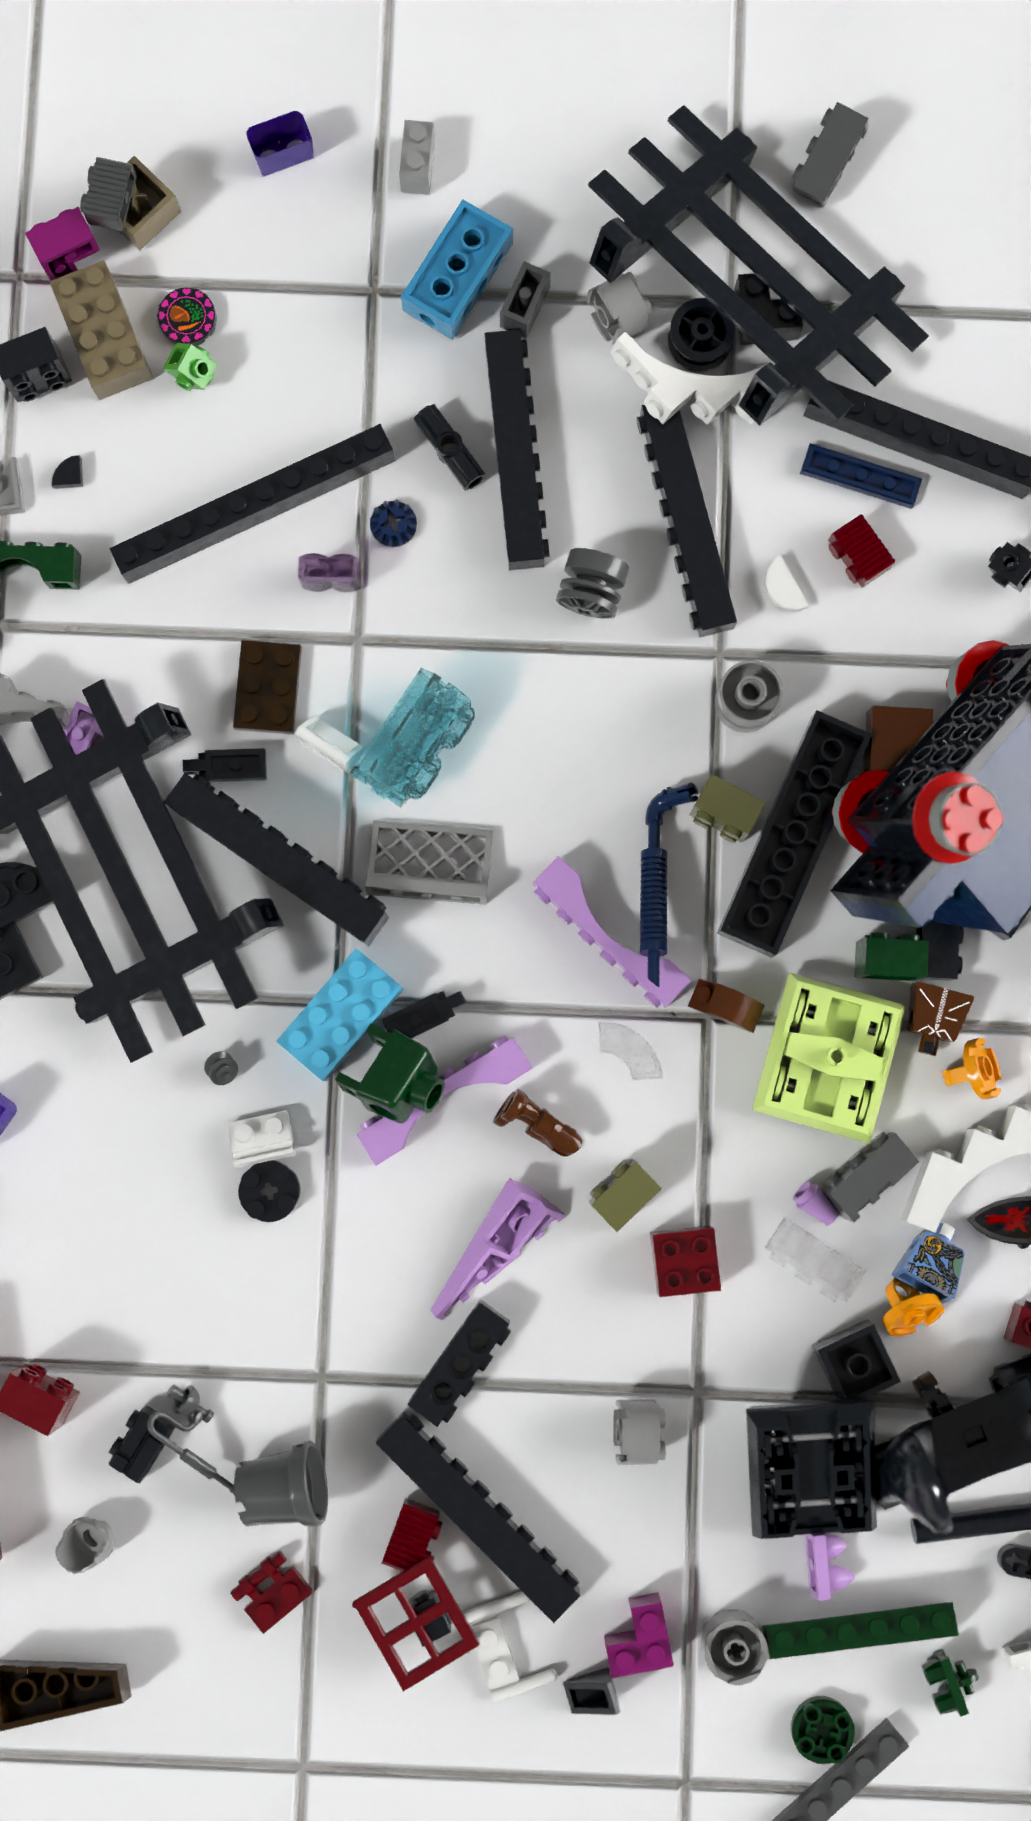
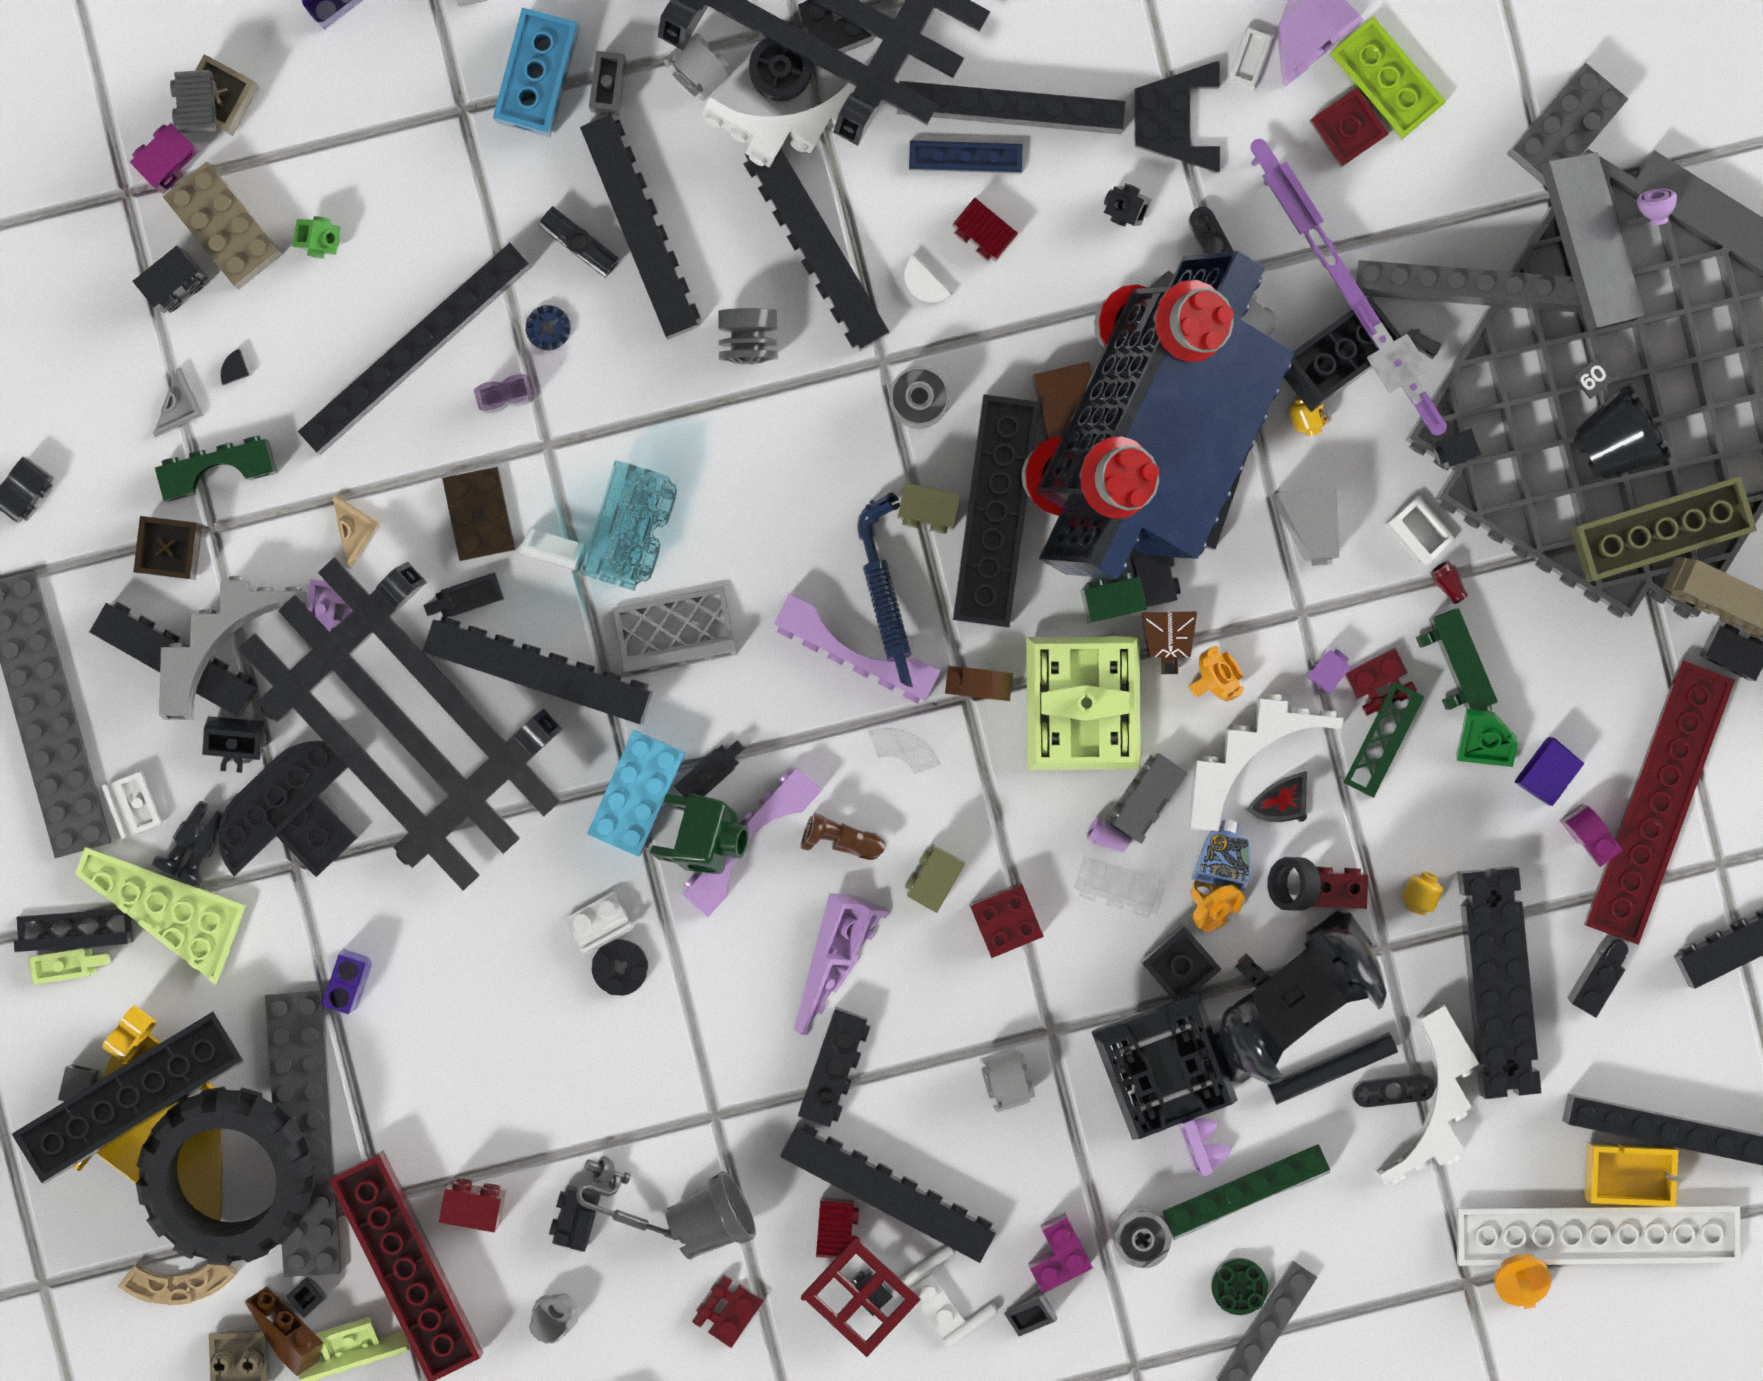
camera: 15 degrees left, 5 degrees up
(138, 666) = (354, 529): none -> tan tile
(187, 316) = (296, 187): black tile -> none
(221, 1068) = (543, 871): dark grey wheel -> none
(942, 1670) = (1327, 1204): dark green hips -> none
(1019, 1317) = (1309, 883): none -> black tyre

